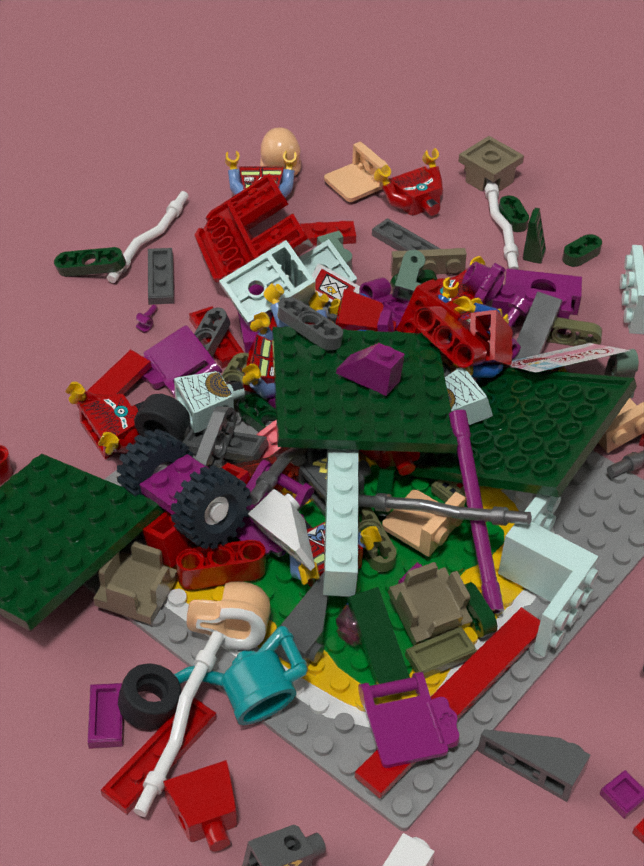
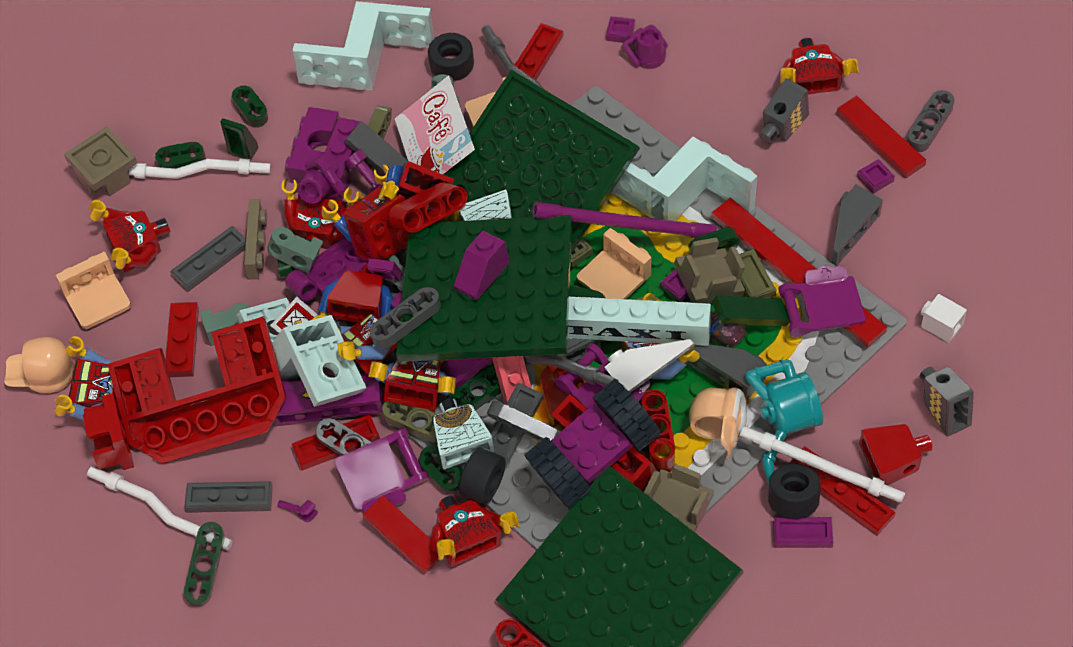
camera: 80 degrees left, 10 degrees up
(208, 189) = (110, 440): none -> red panel
(497, 515) = (647, 199): flat silver bar -> none

